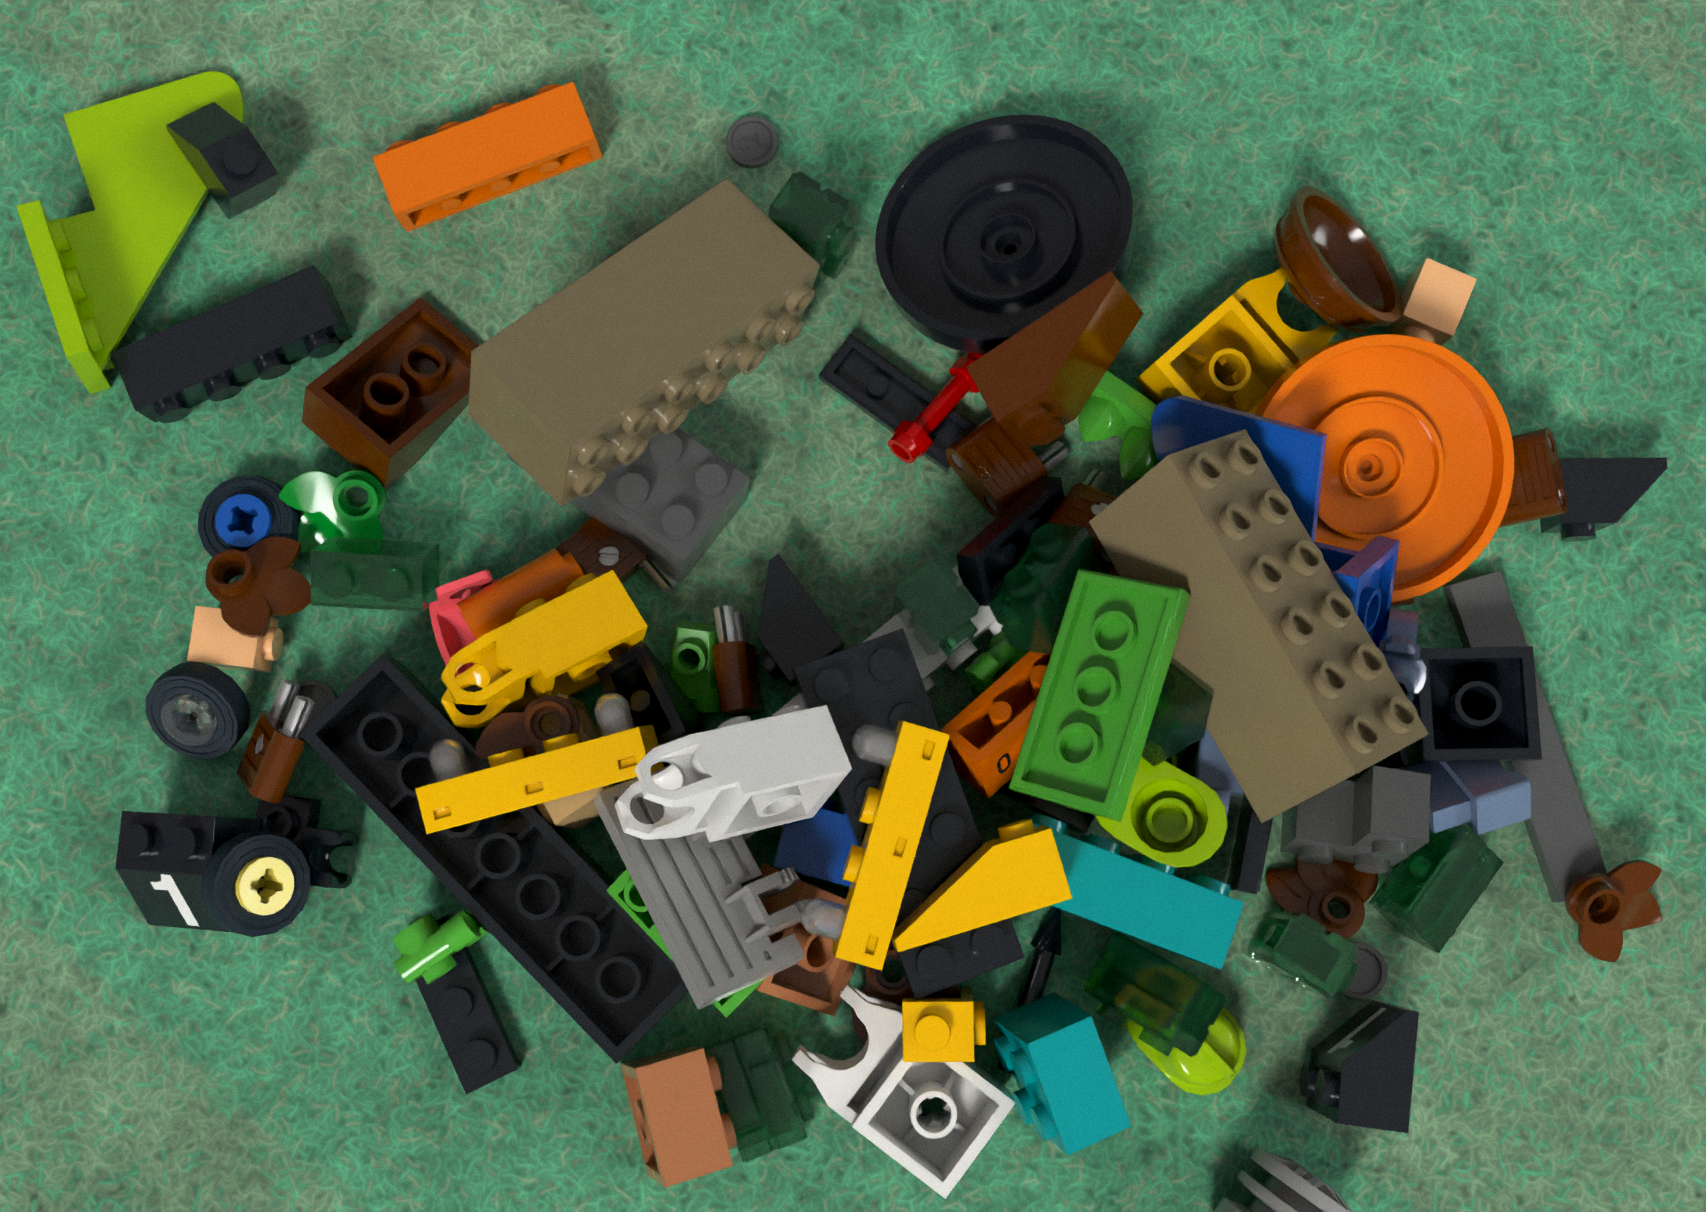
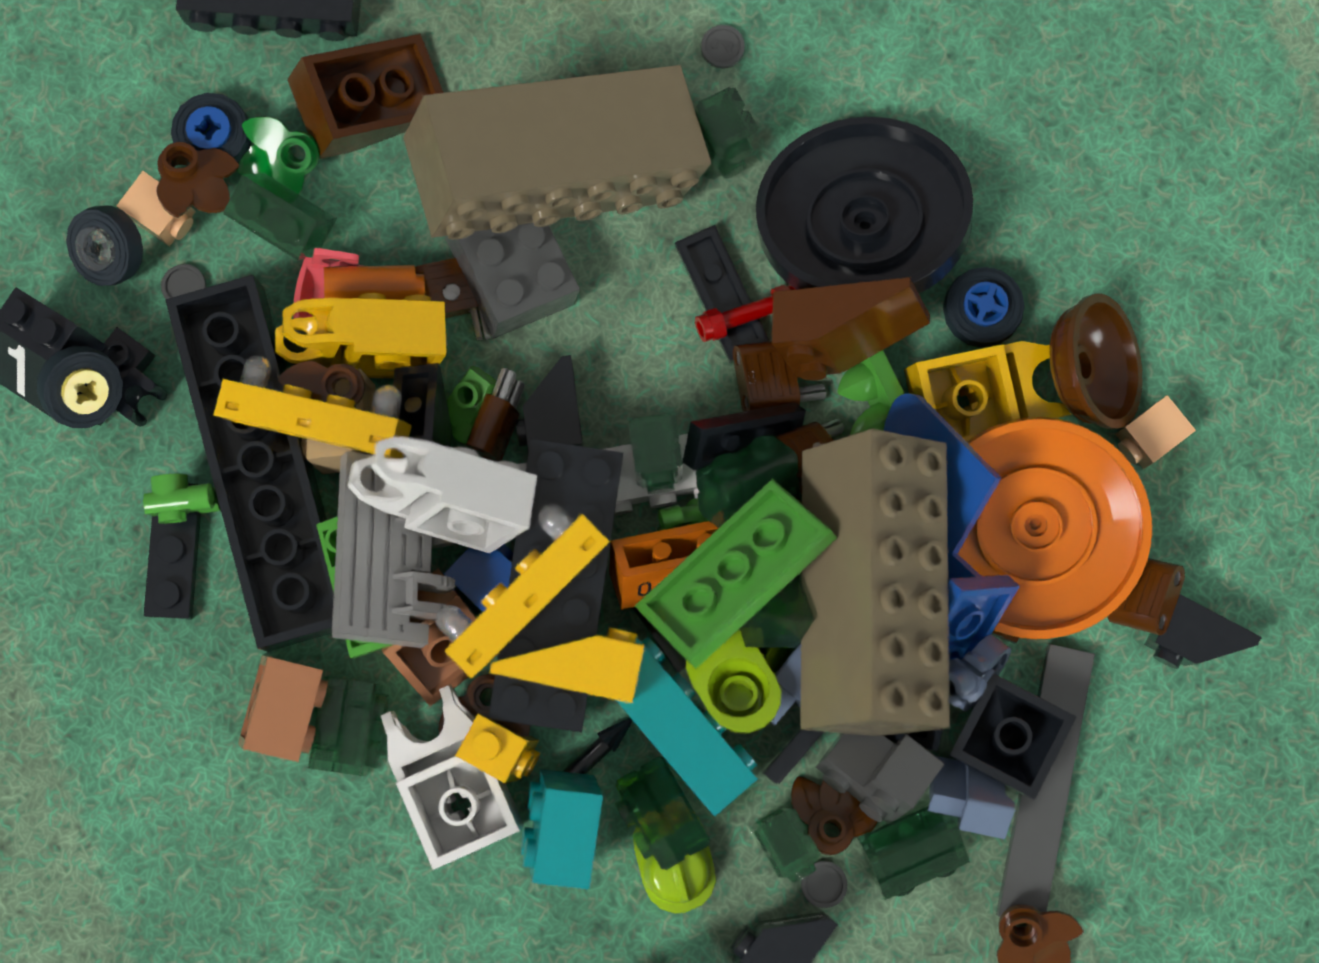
camera: 30 degrees right, 0 degrees up
(276, 744) = (145, 298): reddish brown piece -> none
(1186, 250) = (991, 292): none -> black wheel

